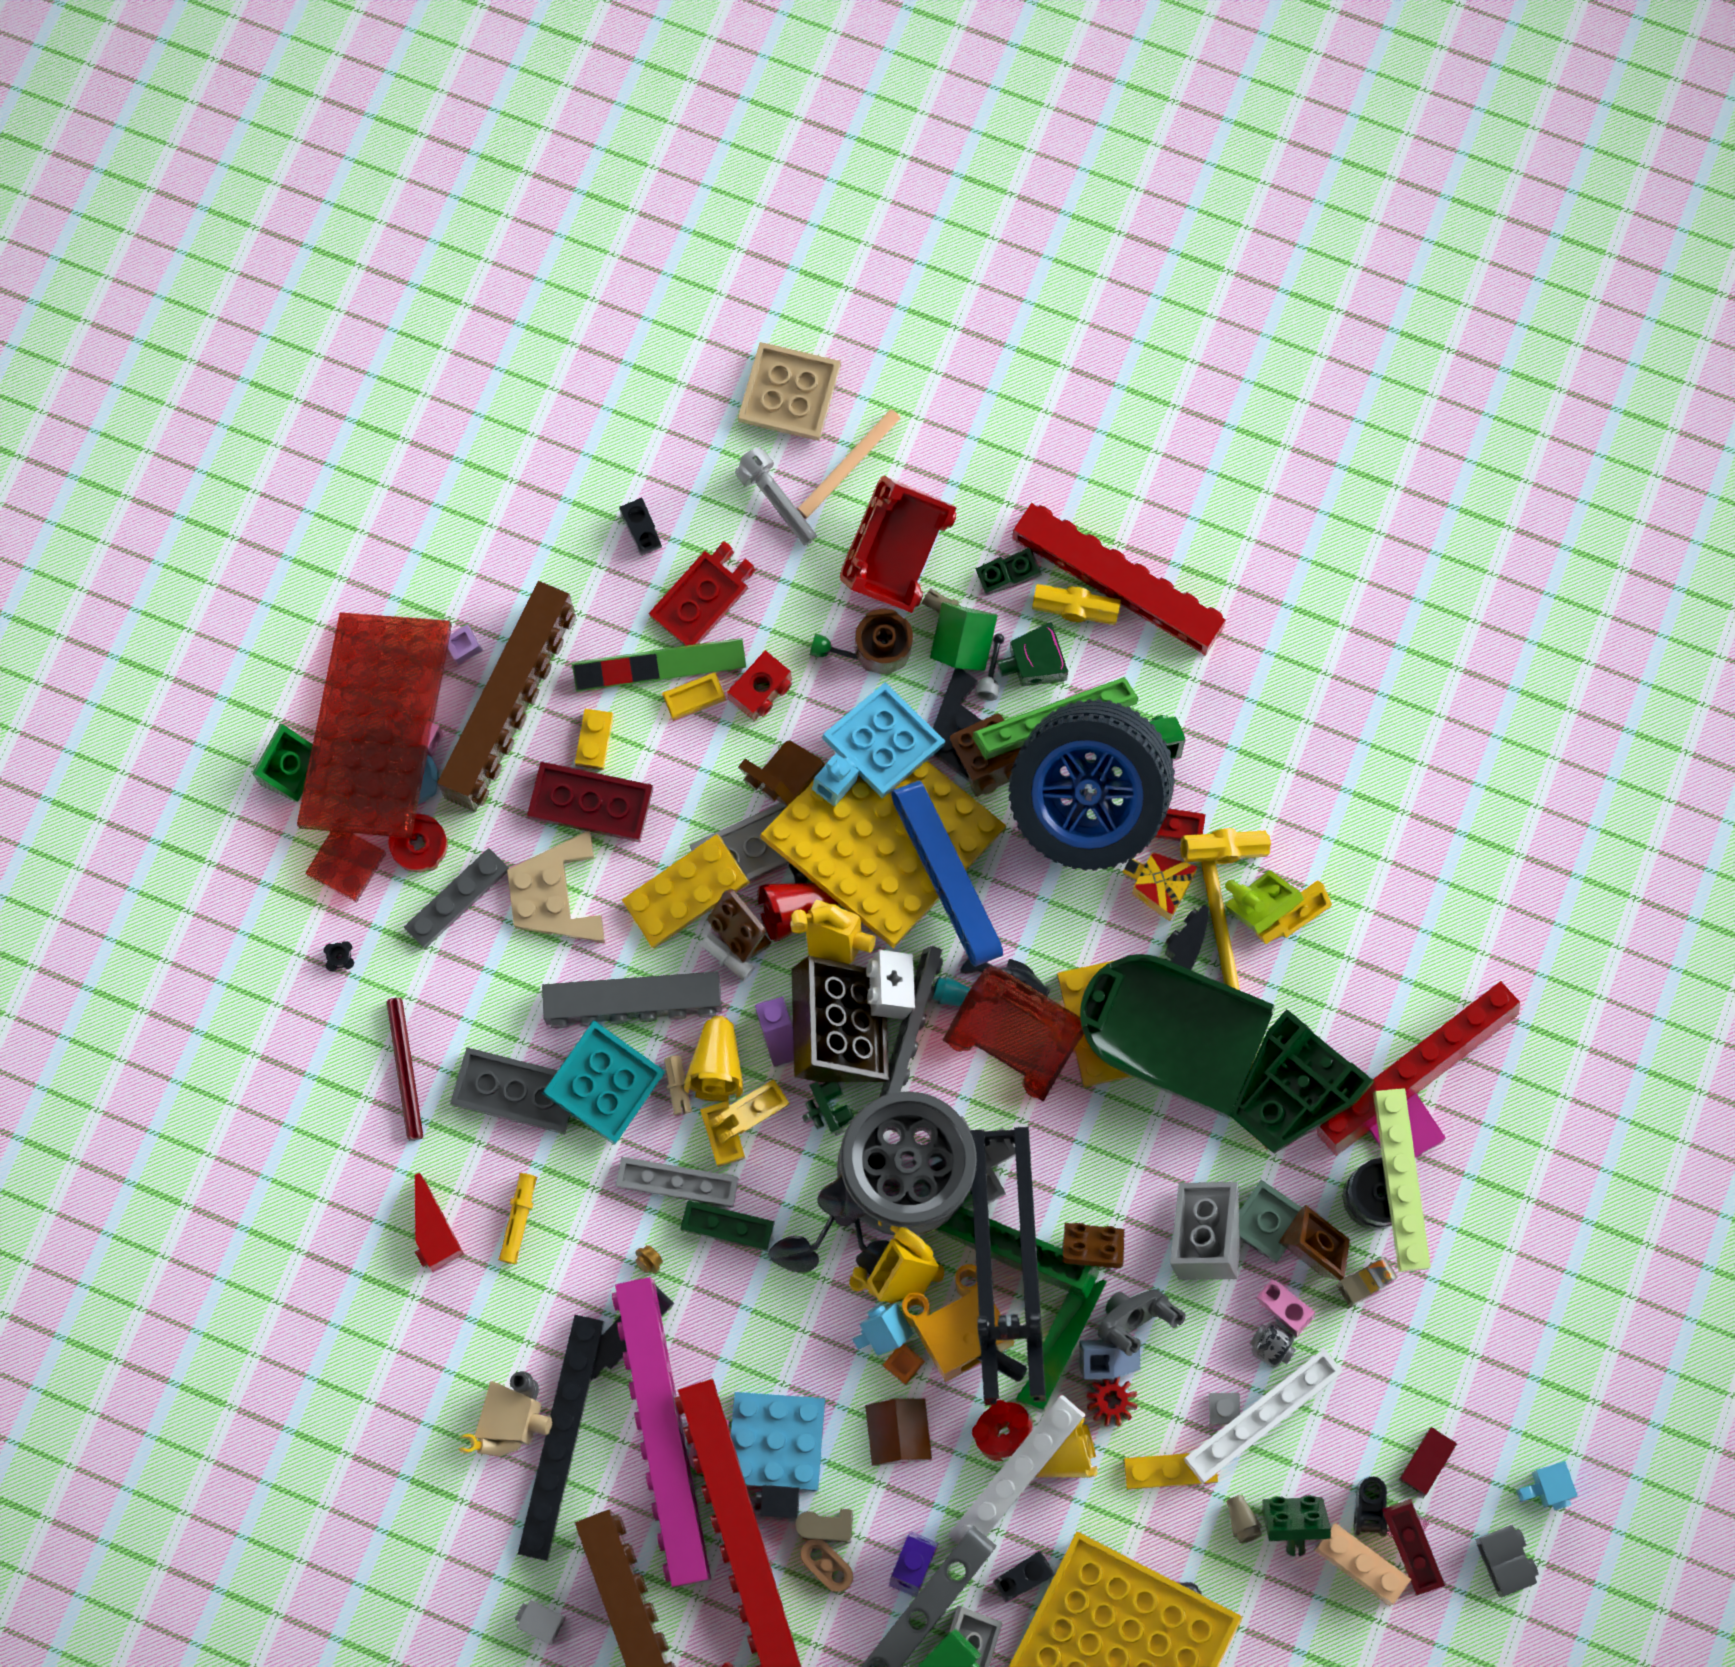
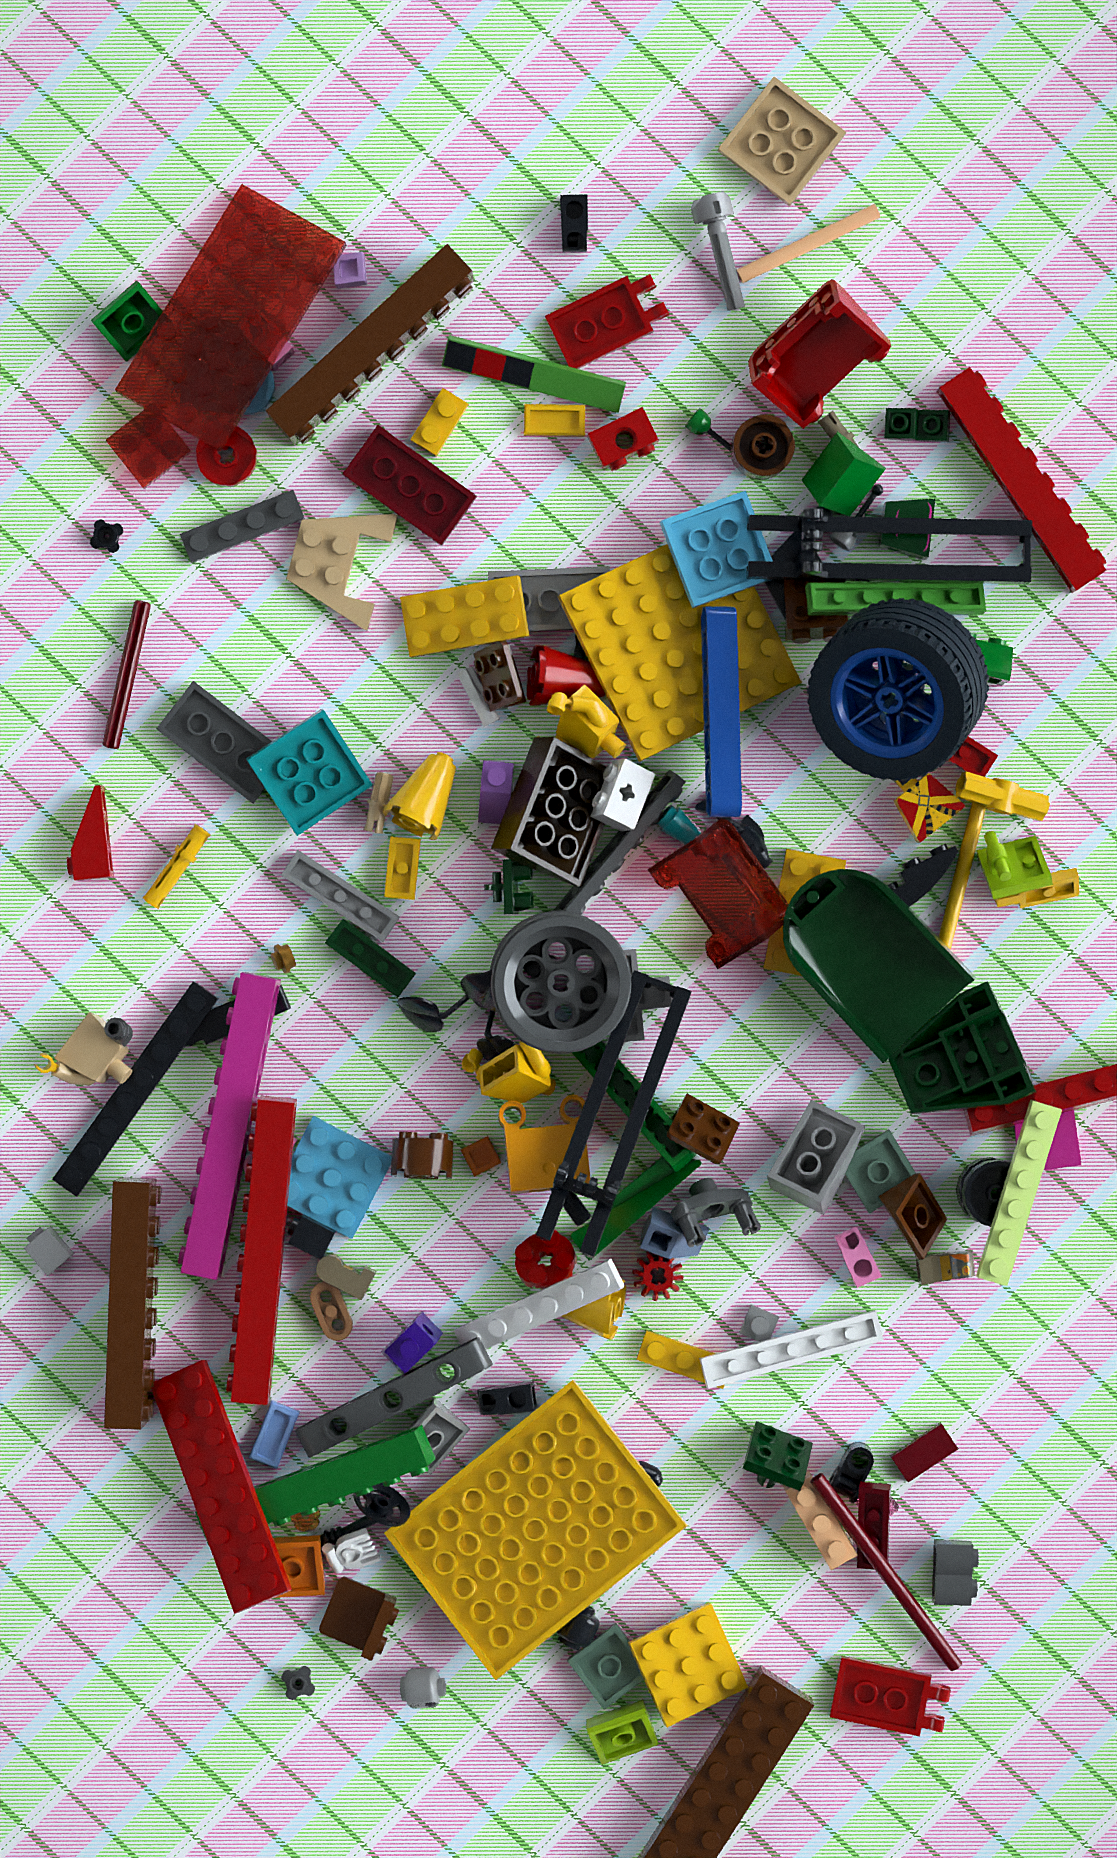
camera: 15 degrees right, 15 degrees up
(632, 999) = (370, 700): dark grey brick -> none
(751, 1110) = (438, 859): yellow hinge -> none
(785, 774) = (609, 540): reddish brown bracket -> none
(835, 779) = (654, 572): medium azure brick -> none
(850, 1382) = (422, 1156): none -> reddish brown brick
(883, 1329) = (474, 1121): medium azure brick -> none
(898, 1431) = (449, 1217): reddish brown slope -> none
(959, 681) = (813, 524): none -> black piece
(1076, 604) = (967, 488): yellow piece -> none
(1243, 1520) = (730, 1434): dark tan cone -> none
(1272, 1345) = (830, 1287): flat silver head -> none
(1445, 1585) = (886, 1572): none -> dark red piece
(1552, 1485) = (1027, 1524): medium azure brick -> none

